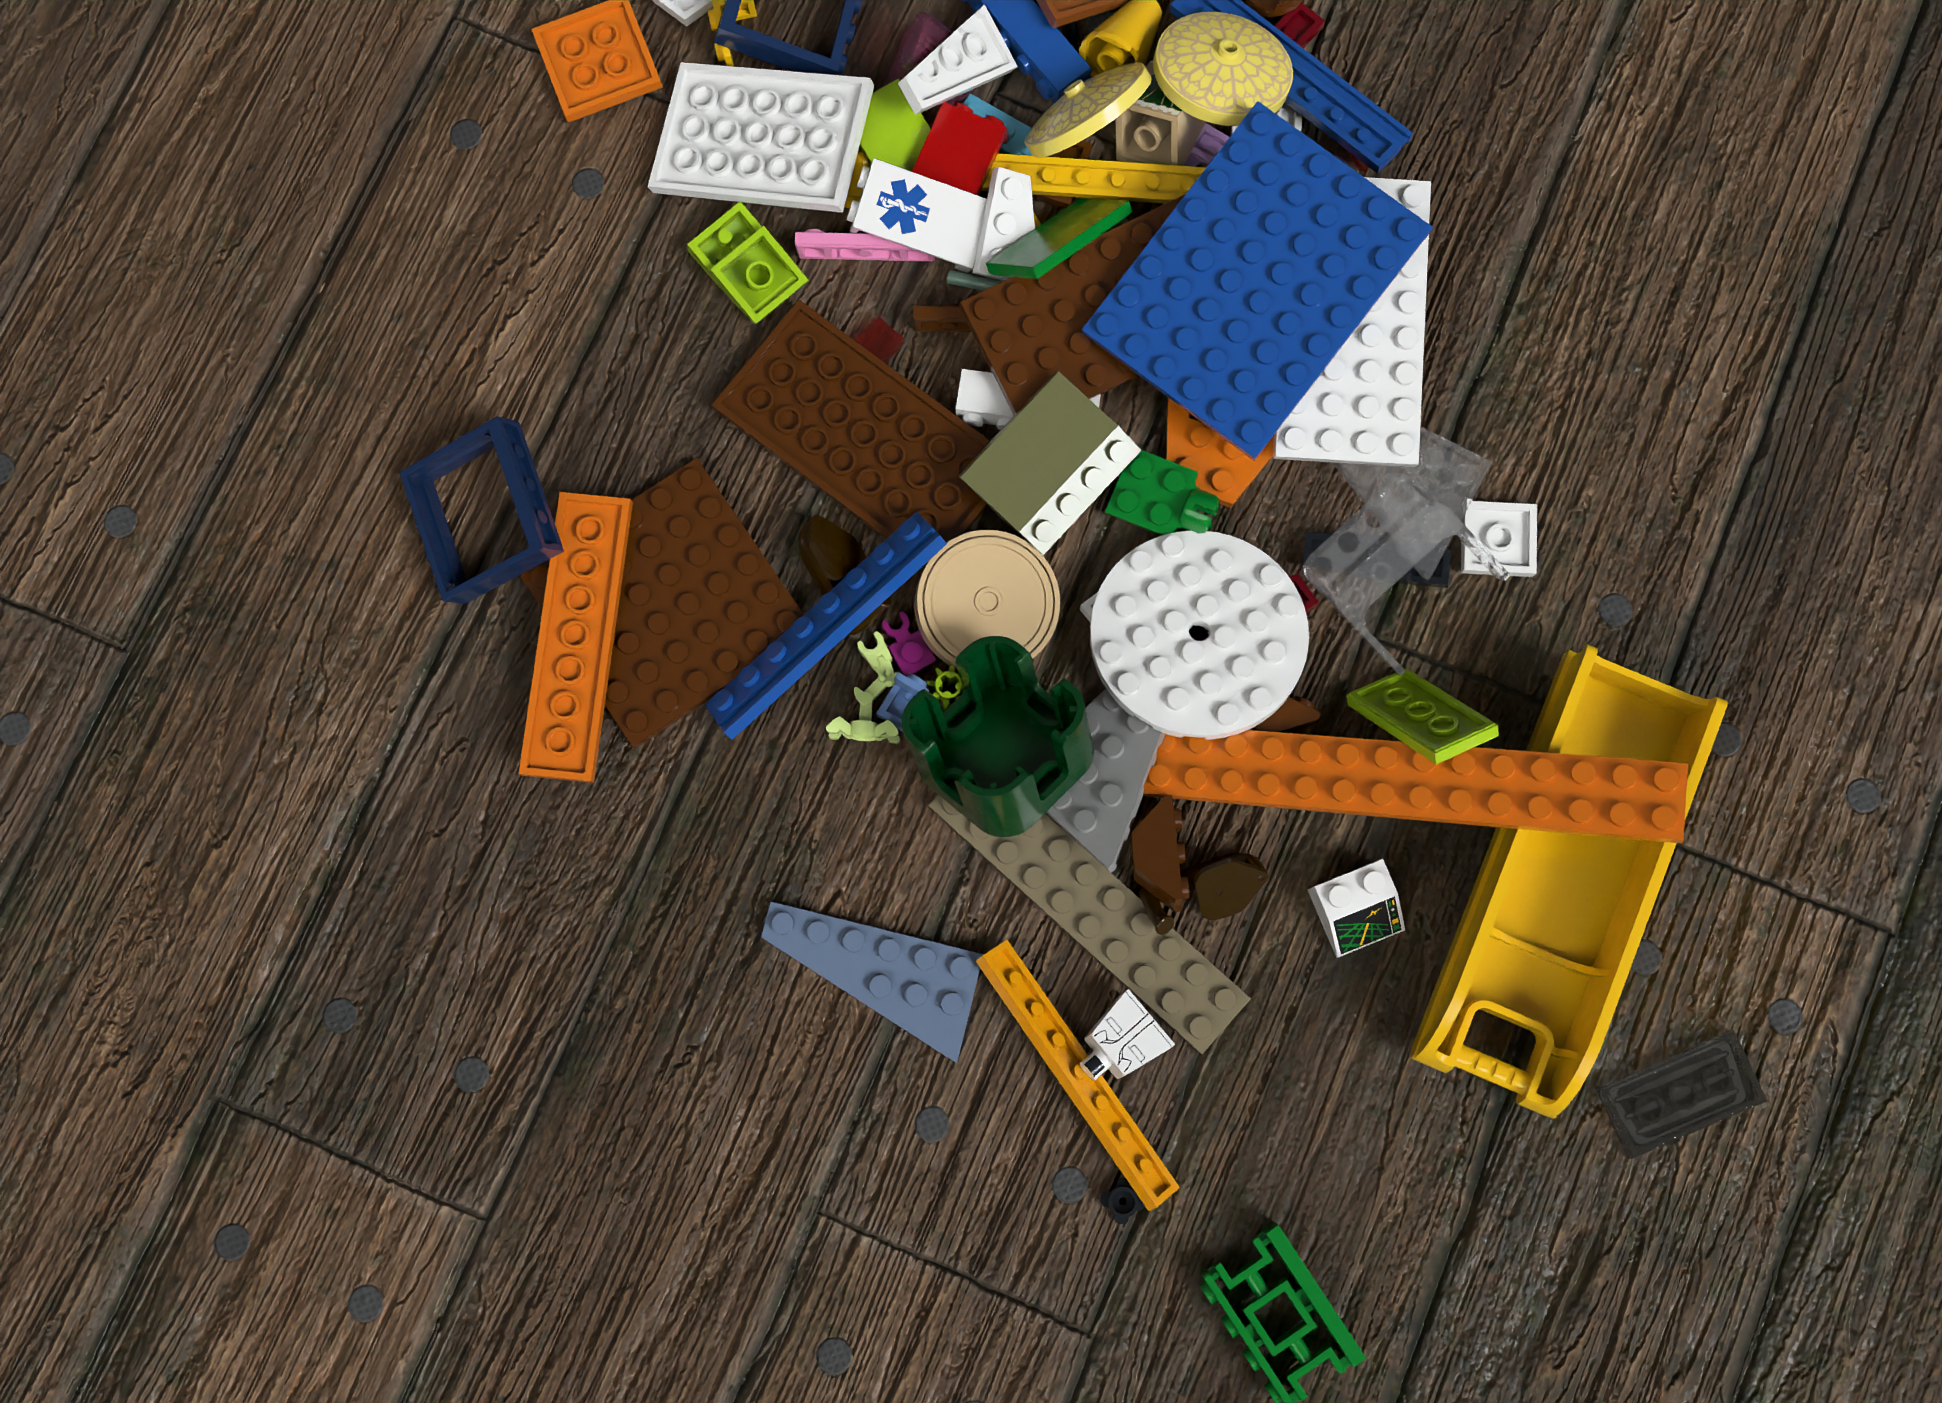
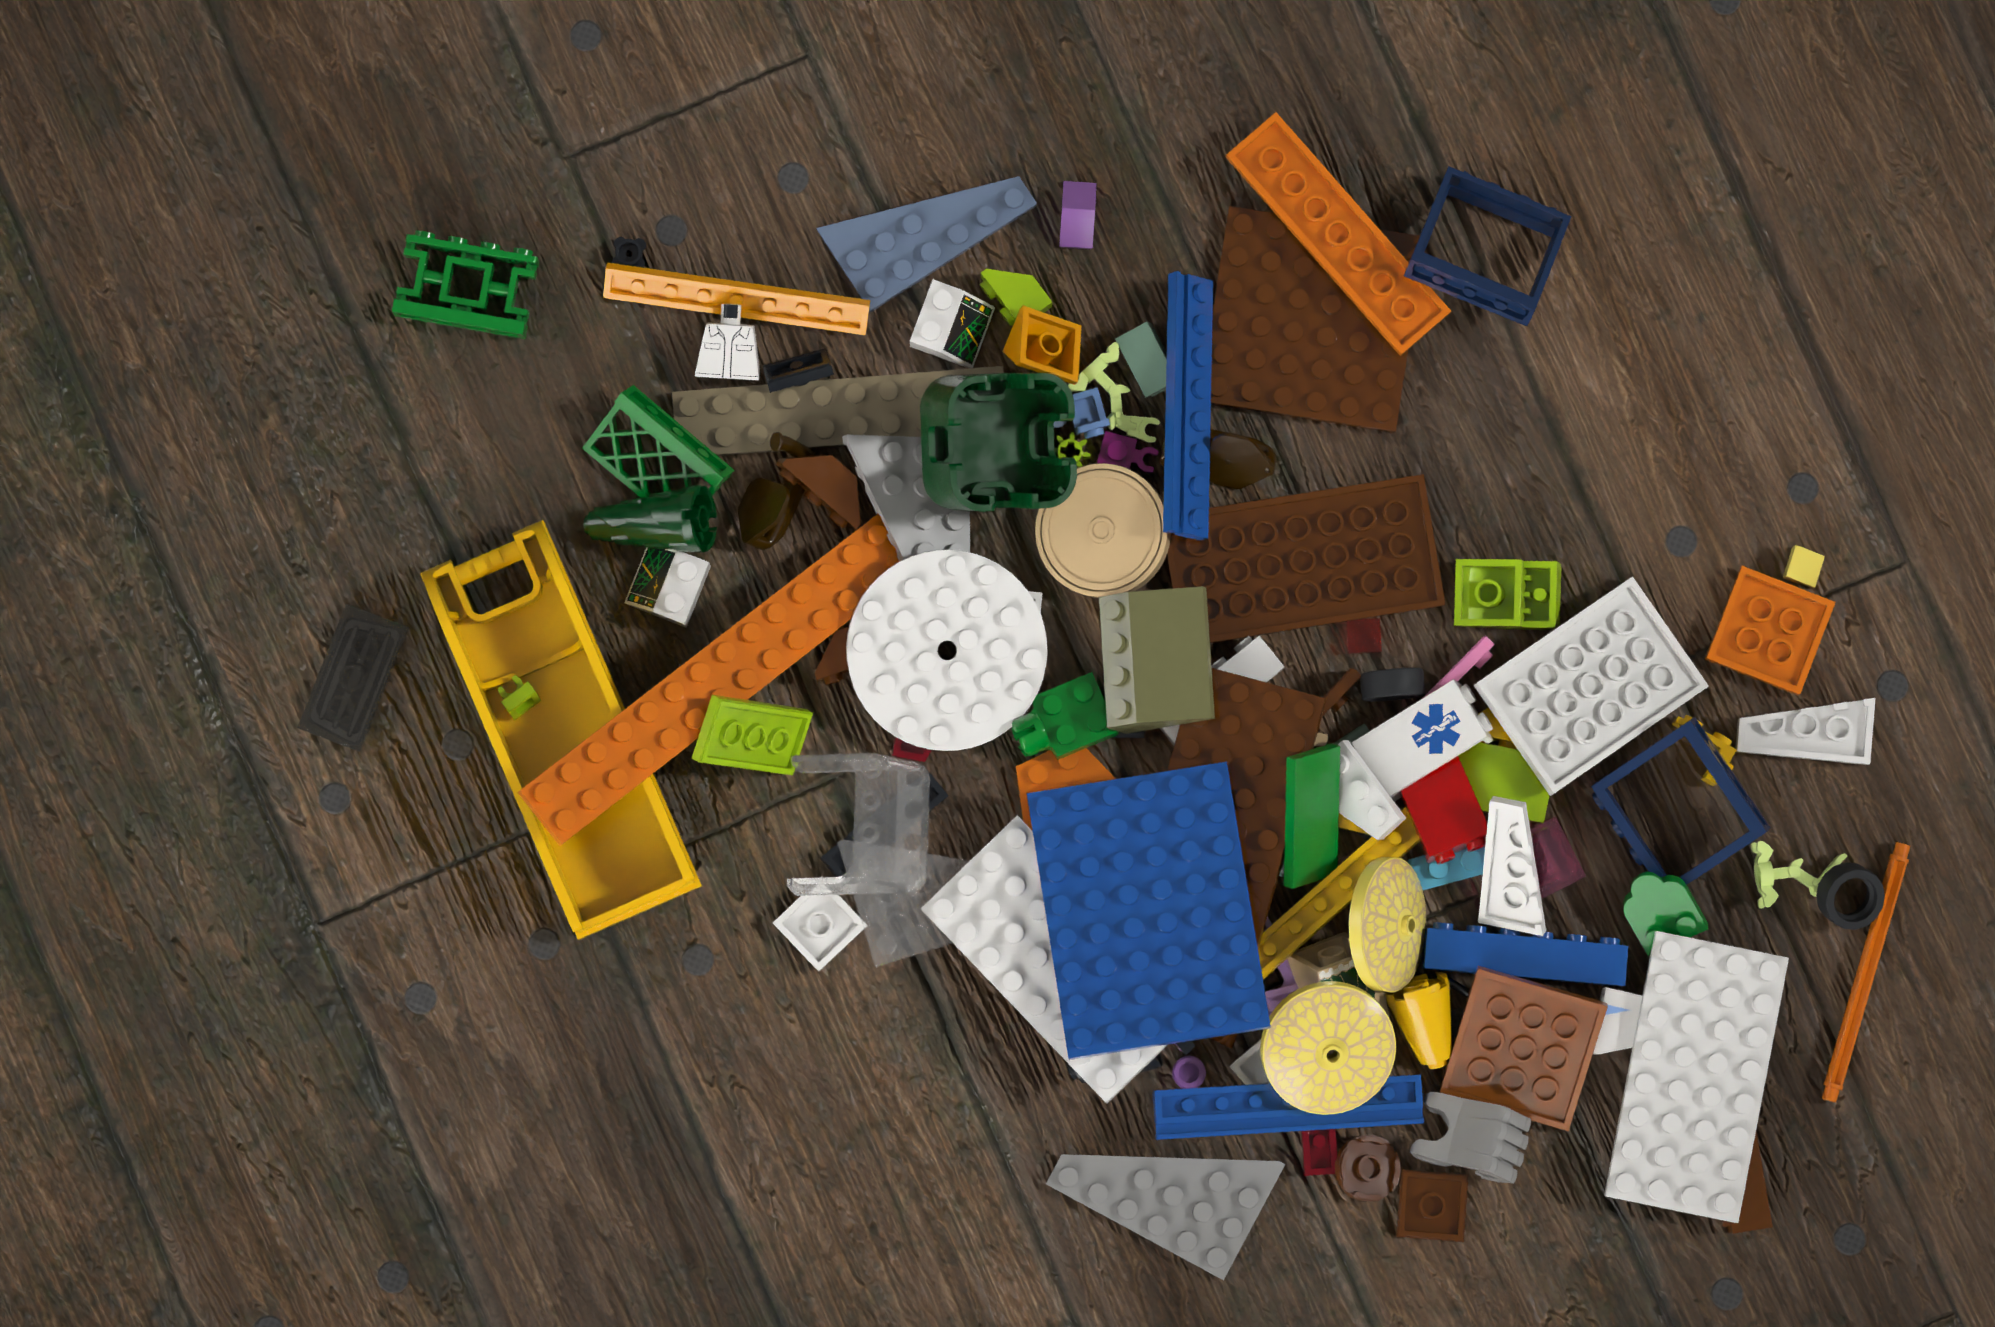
camera: 125 degrees right, 5 degrees up
(526, 80) = (1803, 566): none -> light yellow slope
(748, 860) = (1078, 215): none -> medium lavender slope
(817, 696) = (1145, 358): none -> sand green hinge
(859, 844) = (1013, 292): none -> lime slope
(882, 781) = (1045, 344): none -> light orange slope
(898, 278) = (1392, 684): none -> black tyre
(933, 877) = (951, 324): none -> white slope
(1087, 966) = (798, 370): none -> black plate
(1245, 1013) = (667, 434): none -> green fence
(1320, 958) = (662, 521): none -> dark green cone
(1432, 89) = (1179, 1203): none -> light grey wing
(1574, 933) = (520, 700): none -> lime tile

